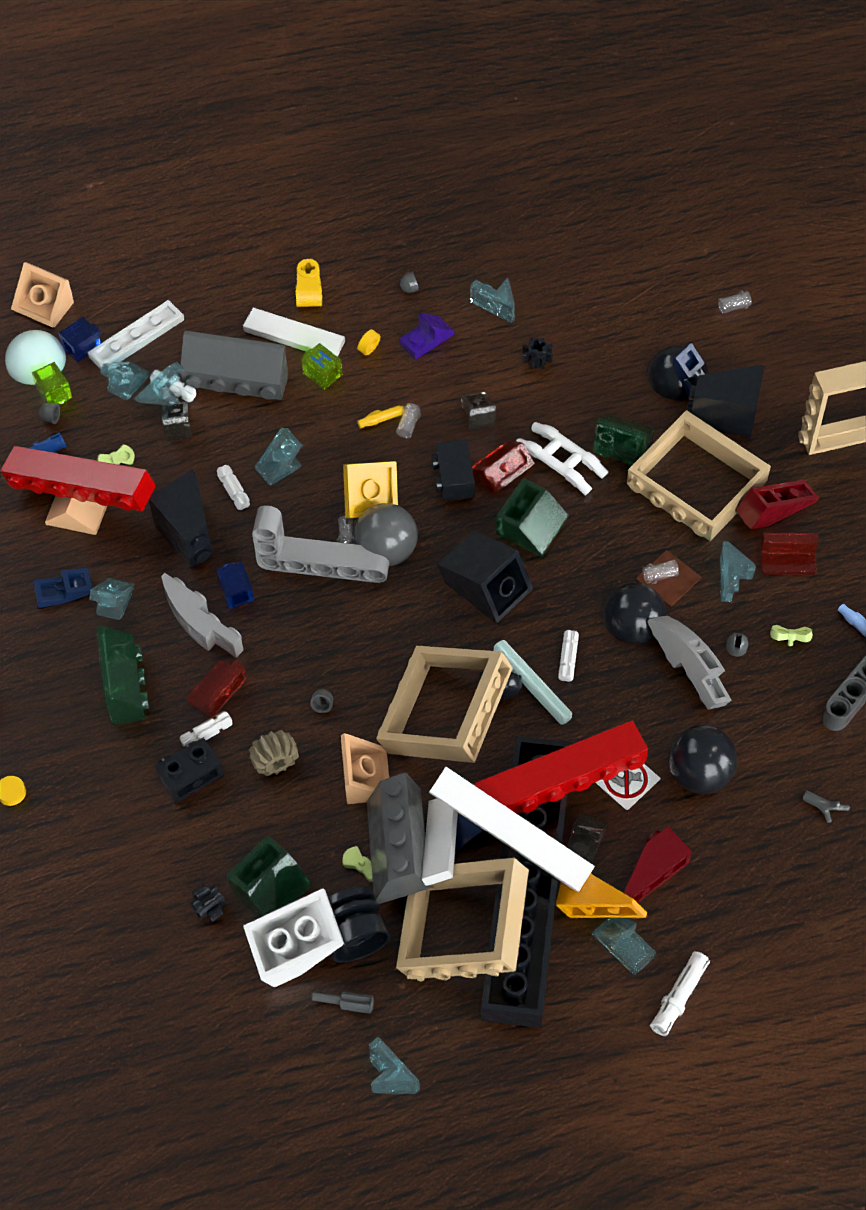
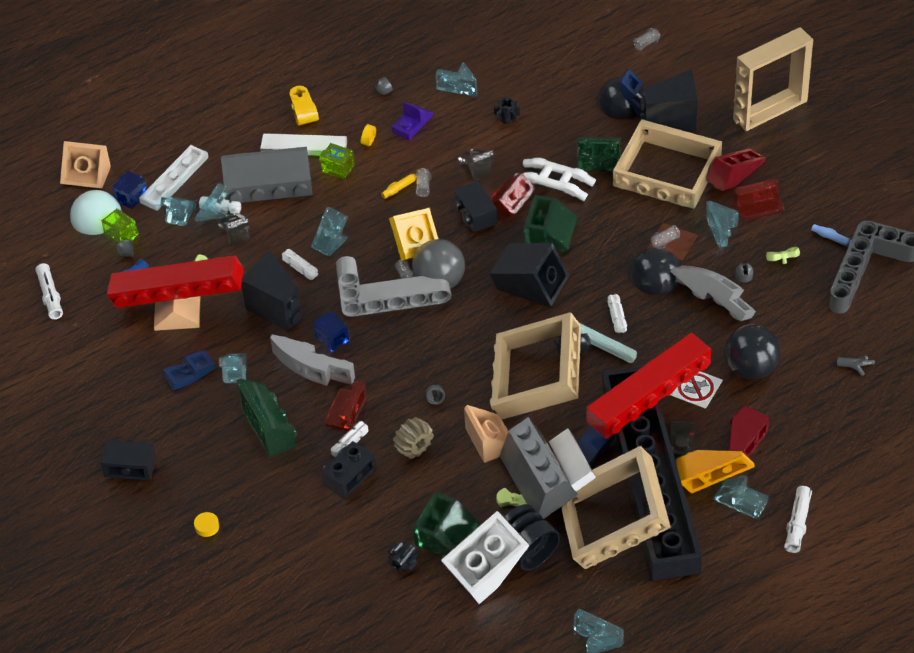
camera: 15 degrees left, 10 degrees down
(347, 1001) = (542, 596): dark grey axle -> none
(511, 829) = (628, 430): white tile -> none

